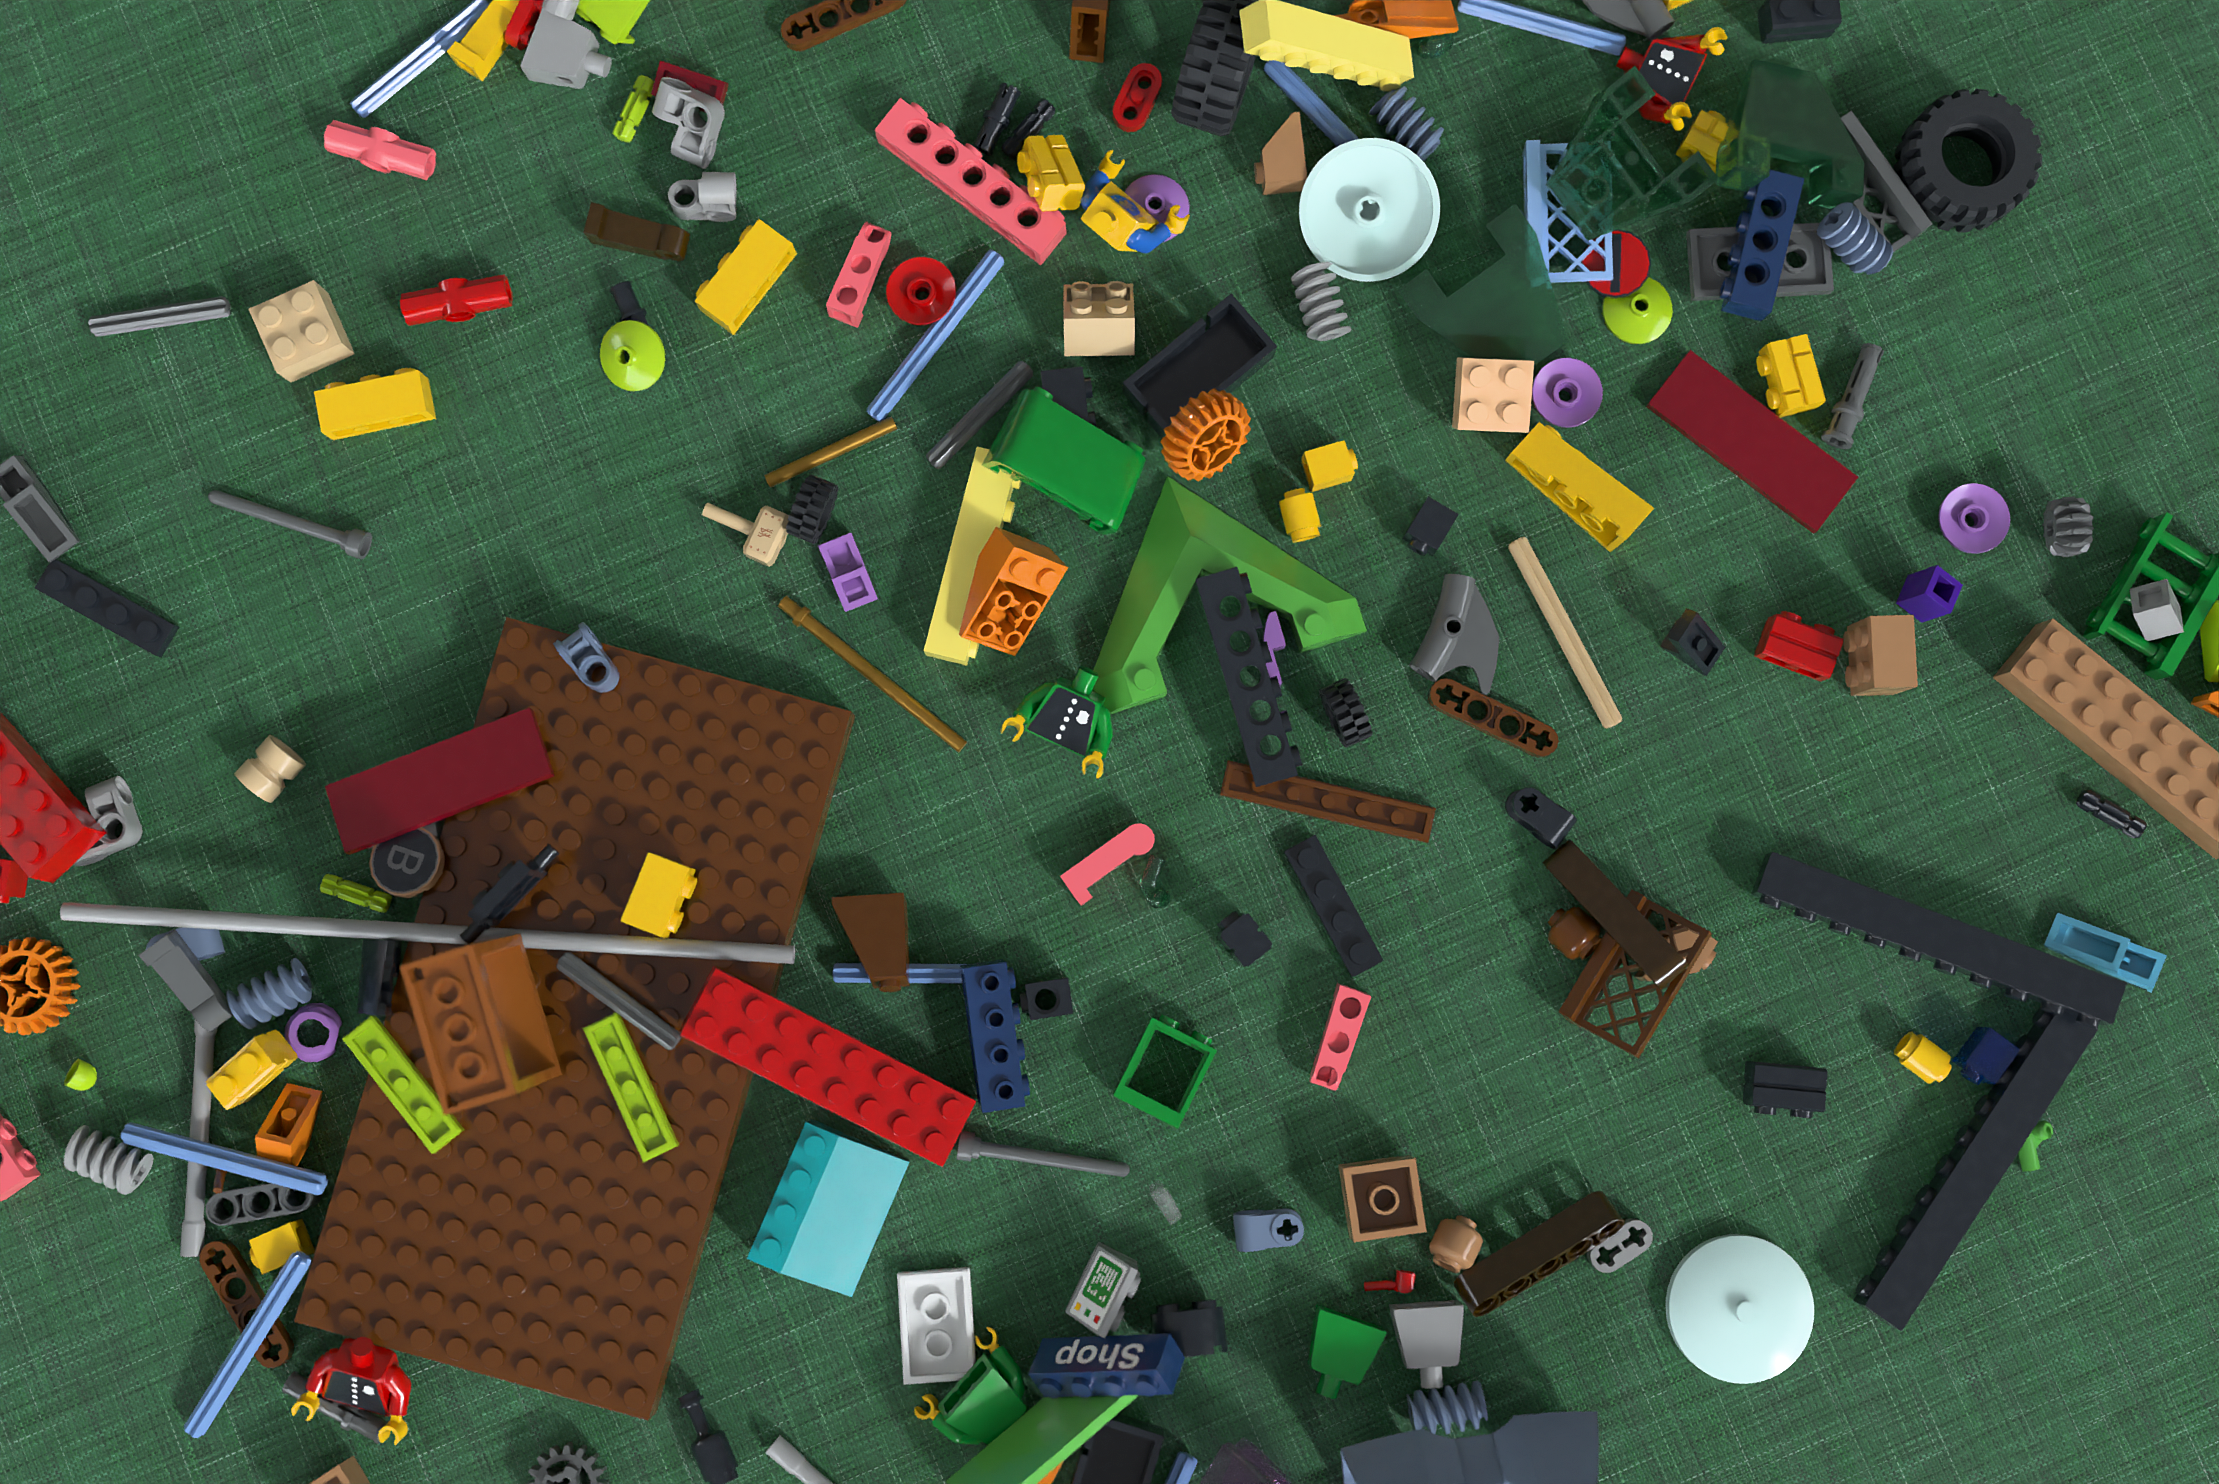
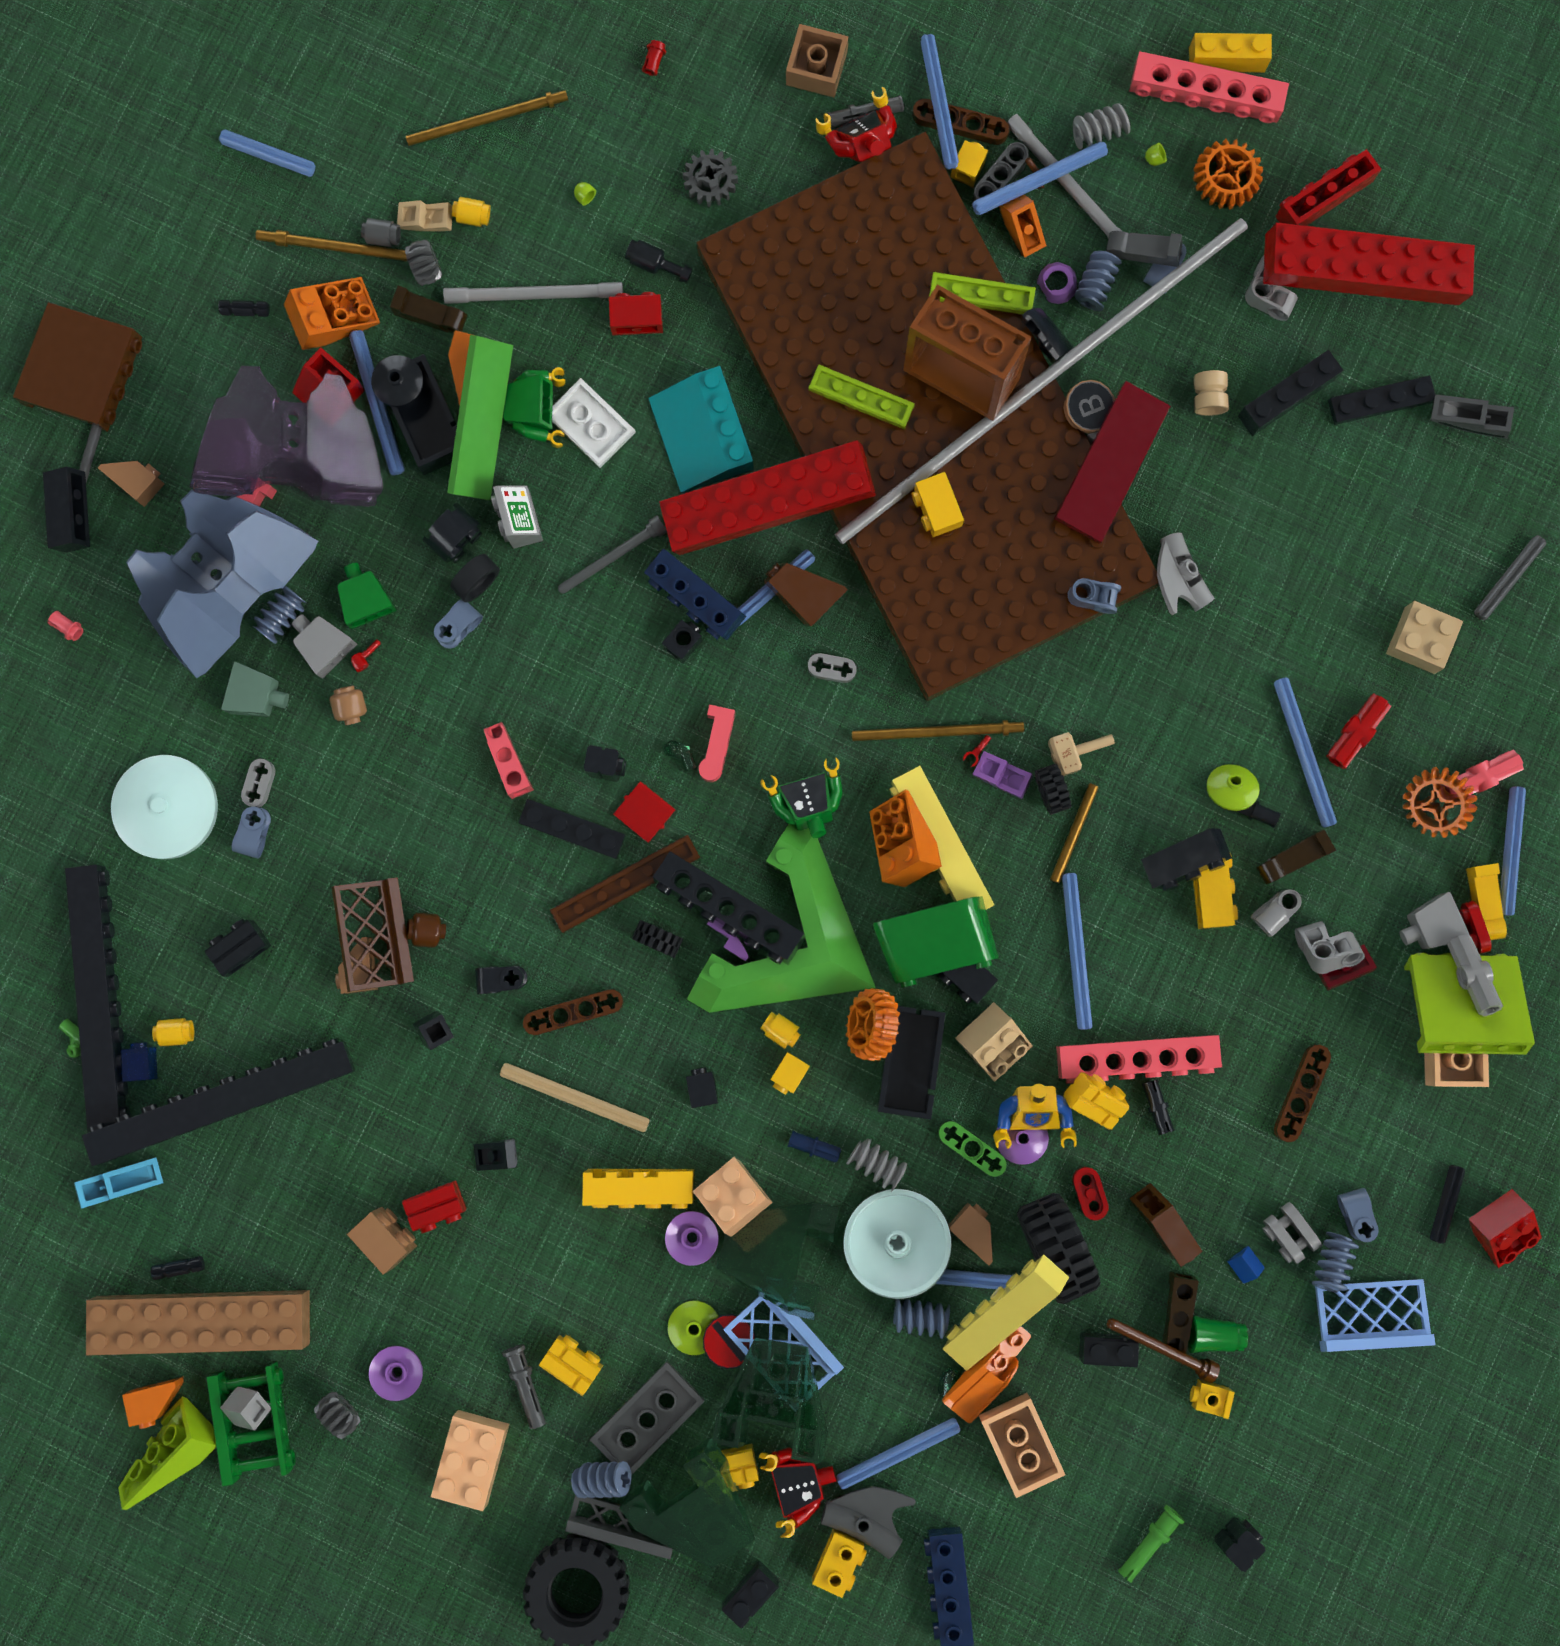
camera: 145 degrees right, 0 degrees up
(190, 695) = (1290, 392): none -> black brick
(251, 1069) = (1069, 234): yellow brick -> none
(354, 542) = (1284, 550): dark grey piece -> none
(355, 893) = (1105, 370): lime axle -> none
(374, 404) = (1347, 634): yellow brick -> none
(471, 173) = (1428, 804): none -> orange gear
(482, 608) = (1179, 575): none -> light grey pin
(514, 884) = (1020, 442): black plate -> none
(528, 328) = (1305, 752): none -> medium blue axle
(618, 1000) = (909, 433): dark grey axle -> none
(634, 109) = (1365, 928): lime axle -> none
(746, 319) = (1187, 859): none -> black brick
(782, 1401) = (636, 314): none -> red brick
(851, 618) = (977, 750): none -> red hand
(858, 274) = (1151, 947): coral leg -> none
(913, 840) = (830, 674): none -> light grey beam
(917, 276) = (1120, 965): red dish -> none
(979, 415) = (1011, 928): dark grey axle -> none
(1030, 126) = (1135, 1118): black axle -> none
(1107, 1366) = (478, 474): dark blue brick -> none
(1148, 1104) = (579, 633): green window -> none
(1165, 1202) = (524, 588): clear tile -> none
(1198, 217) = (984, 1166): none -> bright green beam
(1207, 1260) = (474, 577): none -> black tyre
(1243, 858) = (644, 812): none -> red piece
(1367, 375) = (814, 1147): none -> dark blue axle
(1382, 1198) = (408, 693): medium nougat brick -> none
(1475, 635) = (621, 1046): dark grey pin -> none
(1538, 1253) = (298, 738): dark brown beam -> none
(1545, 1348) = (252, 693): none -> sand green torso
(1615, 914) = (410, 956): dark brown beam -> none
(1653, 821) = (433, 1030): none -> black brick
(1675, 1193) = (250, 834): none -> sand blue piece
(1752, 442) = (561, 1306): dark red tile -> none
(1756, 300) = (641, 1383): dark blue brick -> none
(1929, 593) = (385, 1302): dark purple brick -> none
(1969, 371) = (470, 1460): none -> light nougat brick

